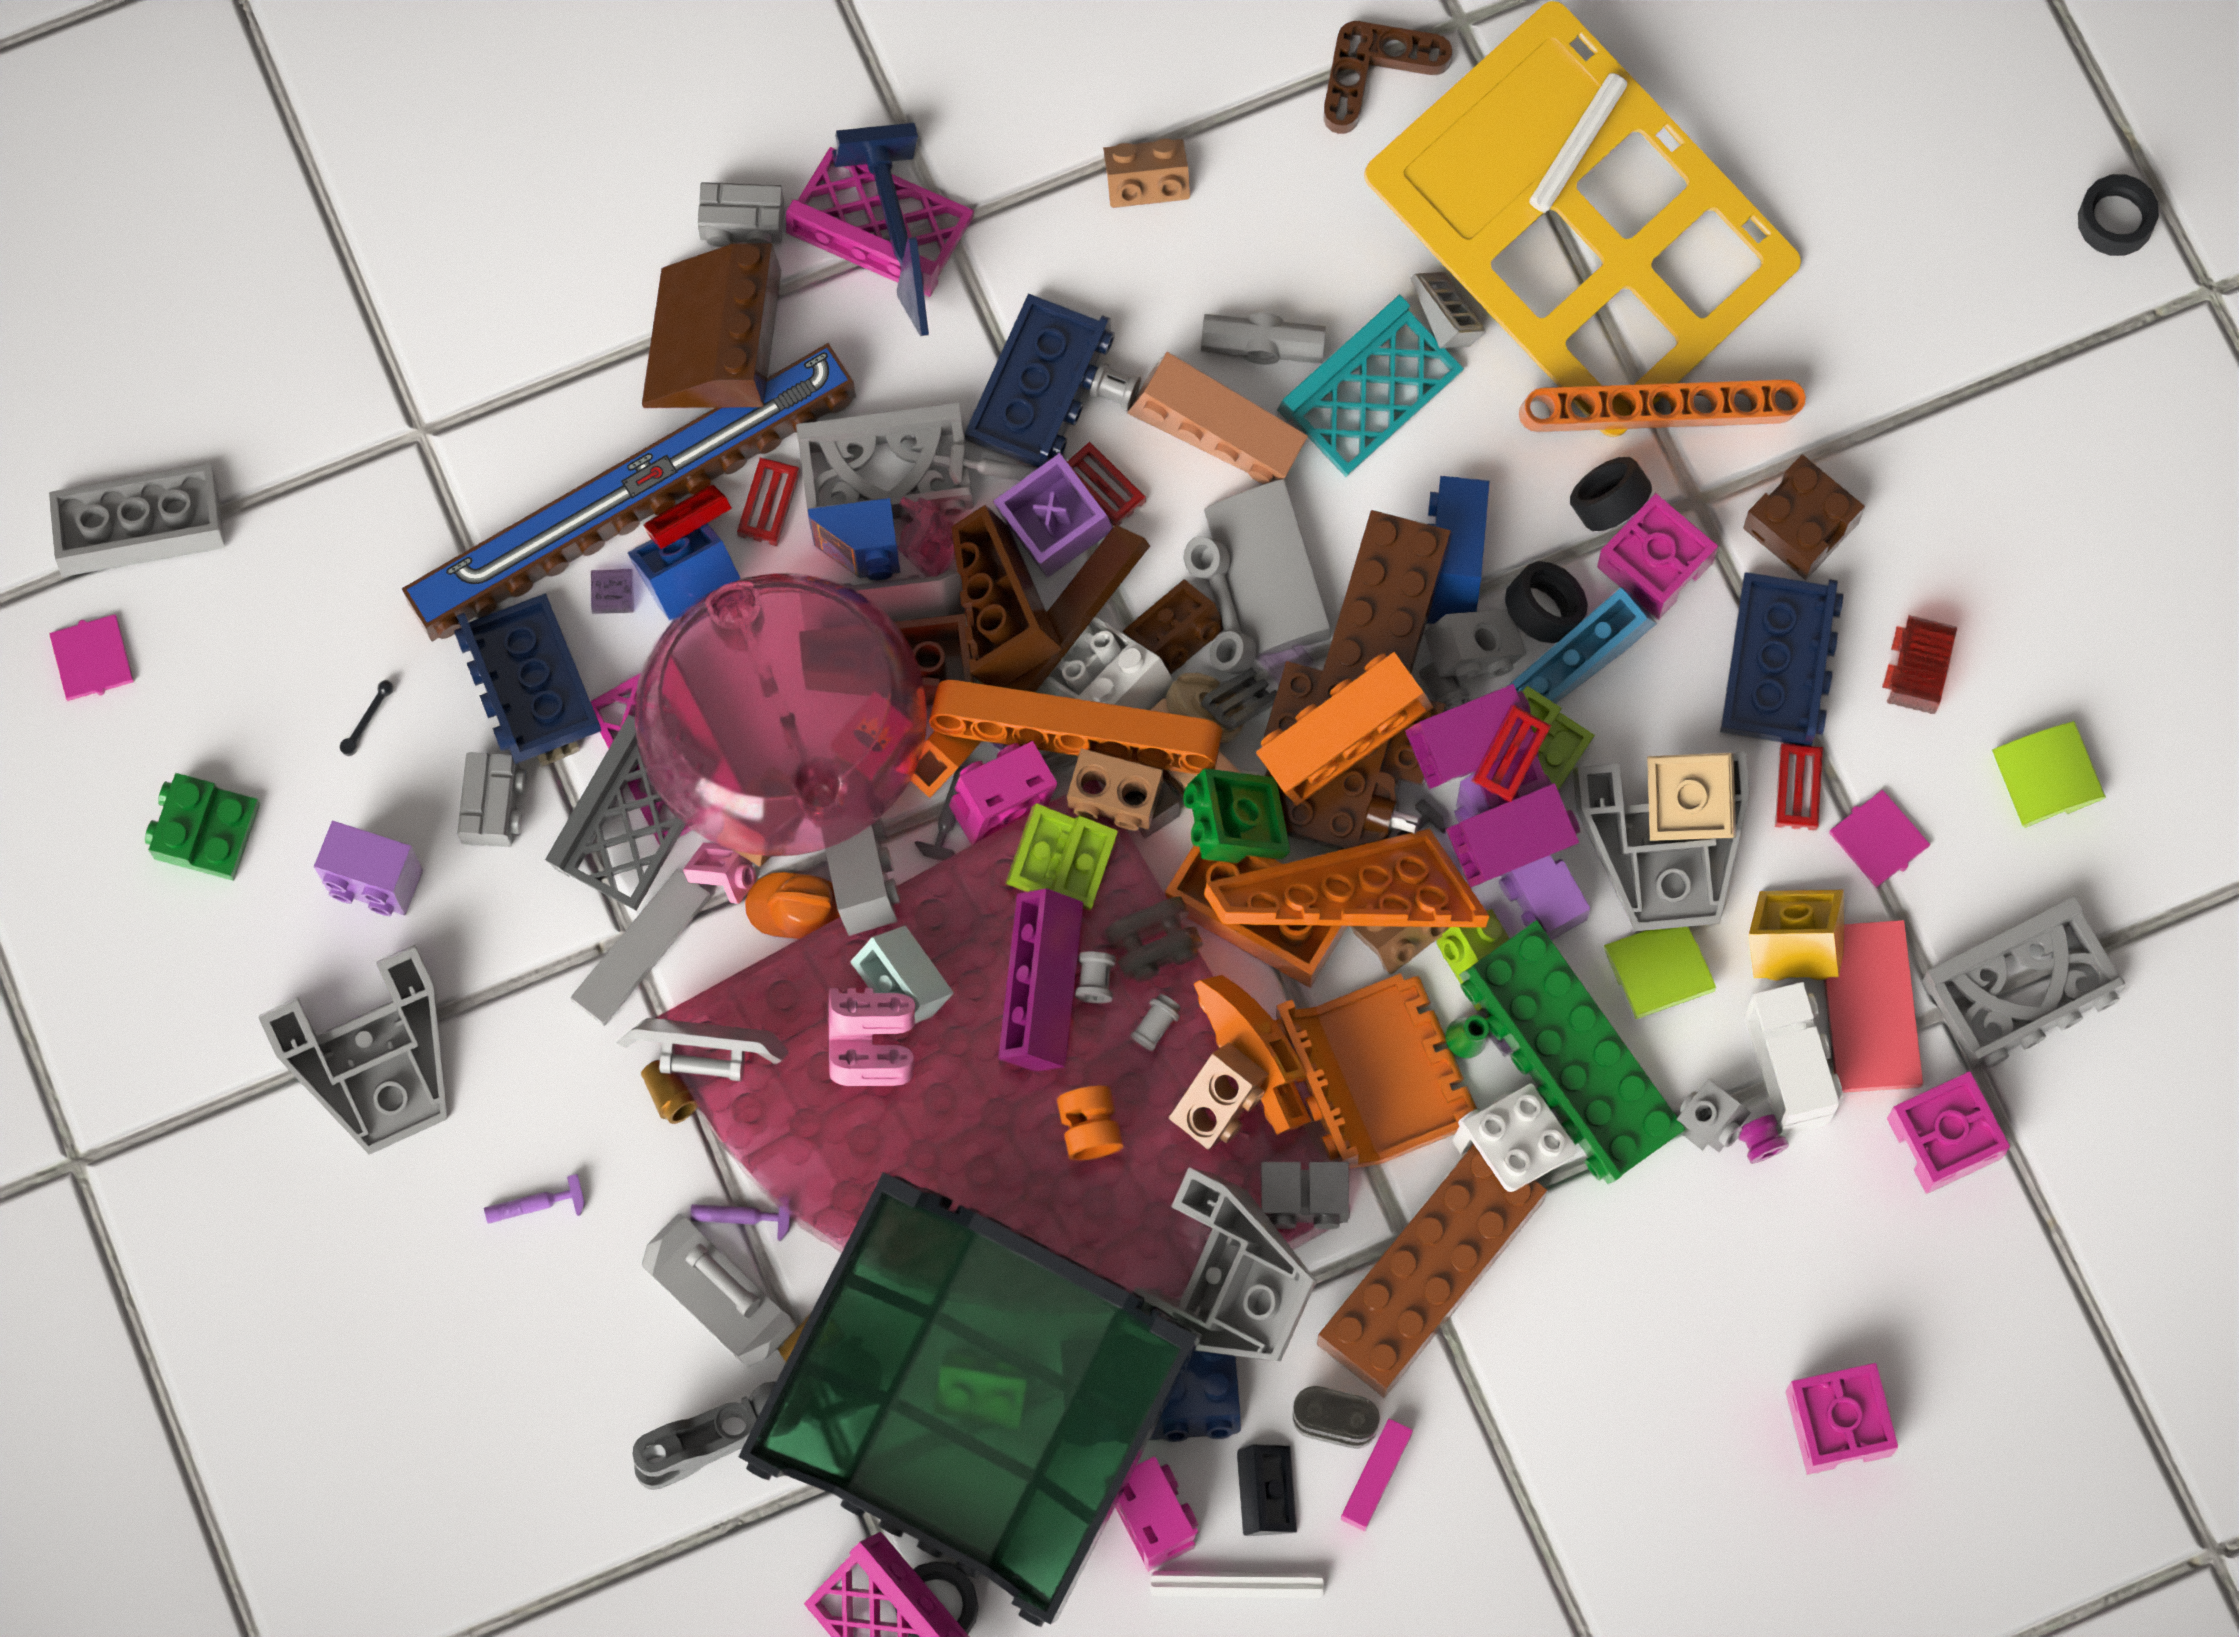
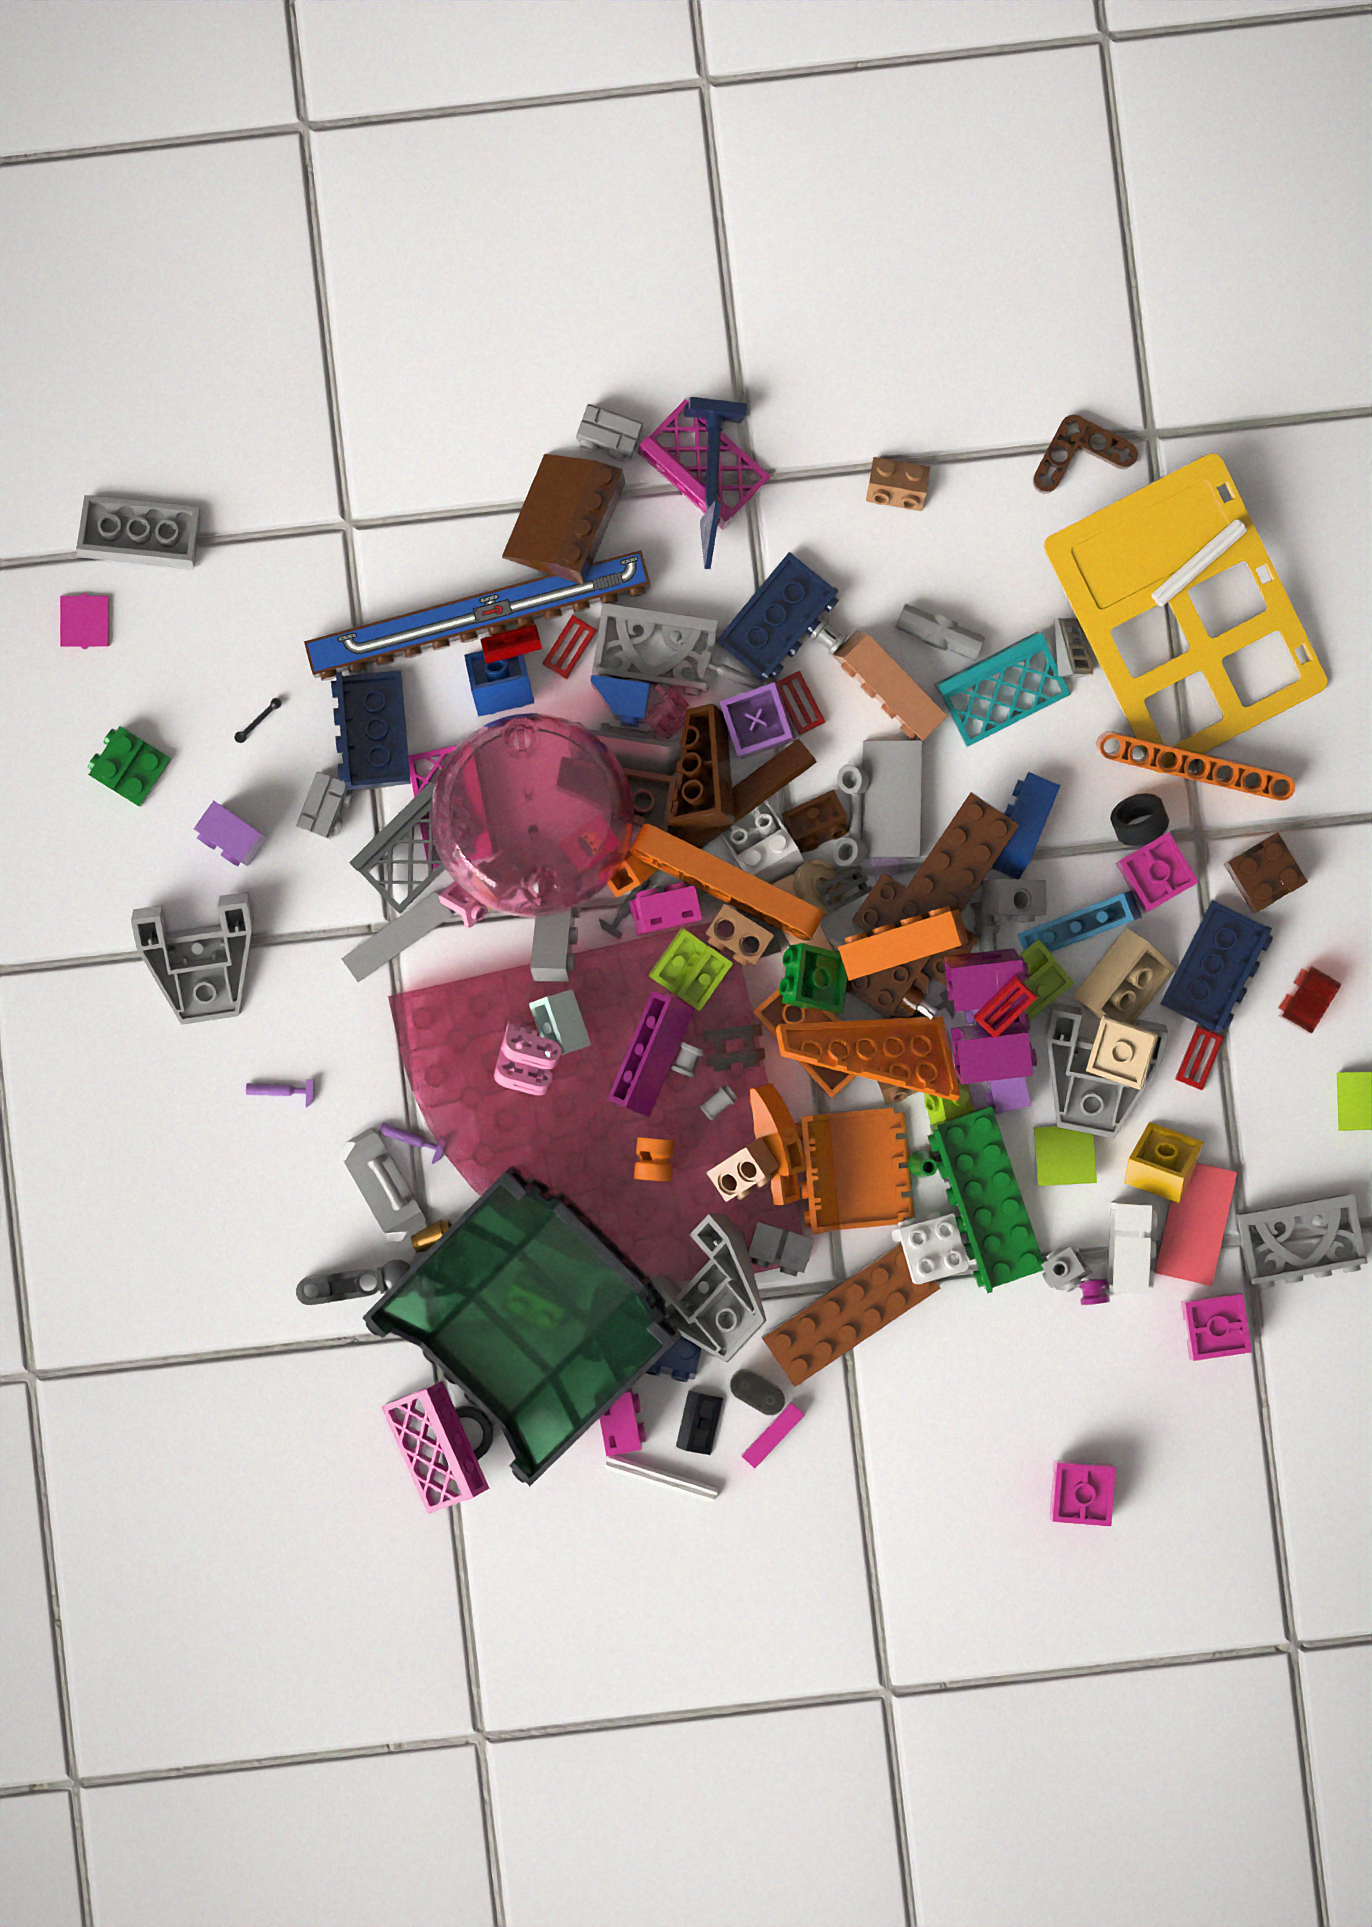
camera: 20 degrees right, 15 degrees up
(612, 591) = (446, 680): clear purple tile -> none
(668, 1093) = (386, 1042): pearl gold cone -> none
(706, 1035) = (418, 1028): light grey piece -> none
(791, 904) = (505, 938): orange piece -> none
(1557, 585) = (1087, 877): black tyre -> none
(1661, 706) = (1125, 979): none -> tan slope
(1879, 838) = (1241, 1109): dark pink piece -> none

